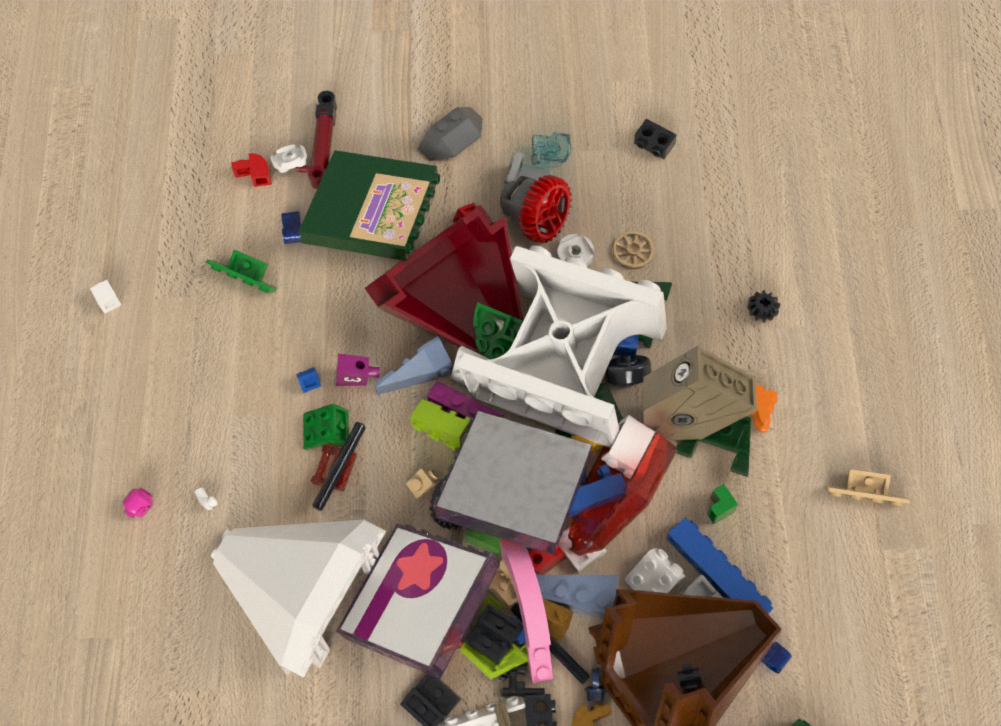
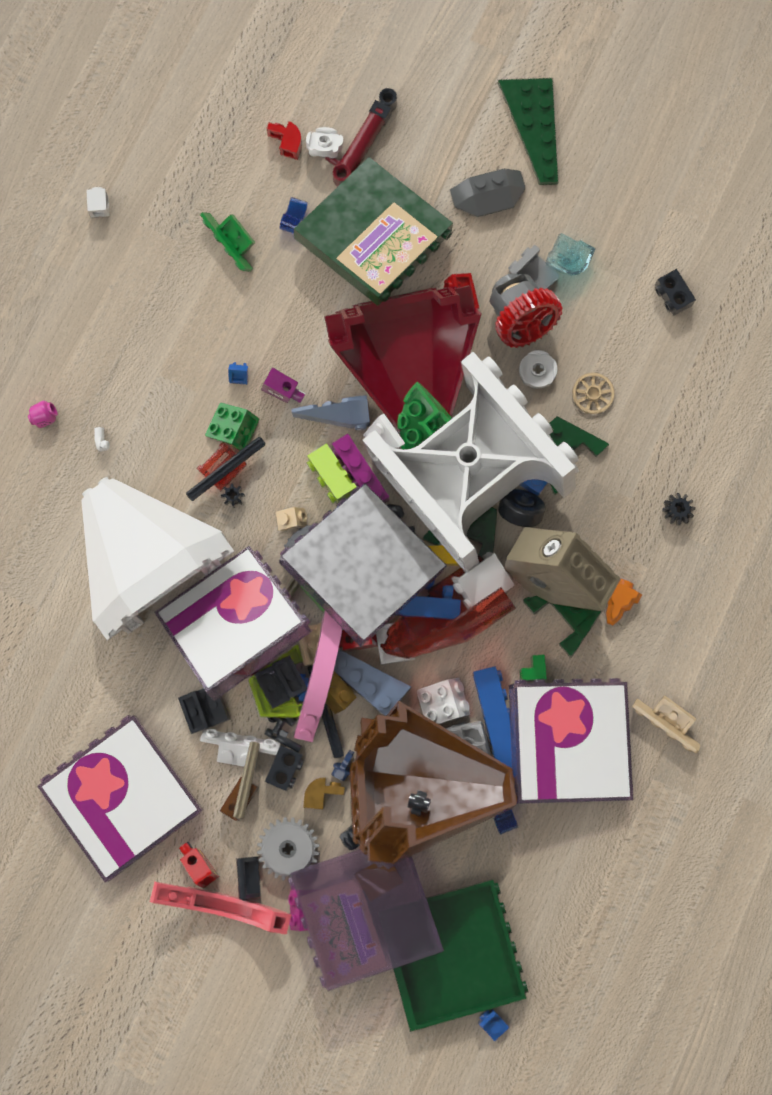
camera: 25 degrees right, 15 degrees up
(357, 493) = (228, 492): none -> black gear
(461, 65) = (534, 118): none -> dark green wing
(793, 550) = (570, 741): none -> panel

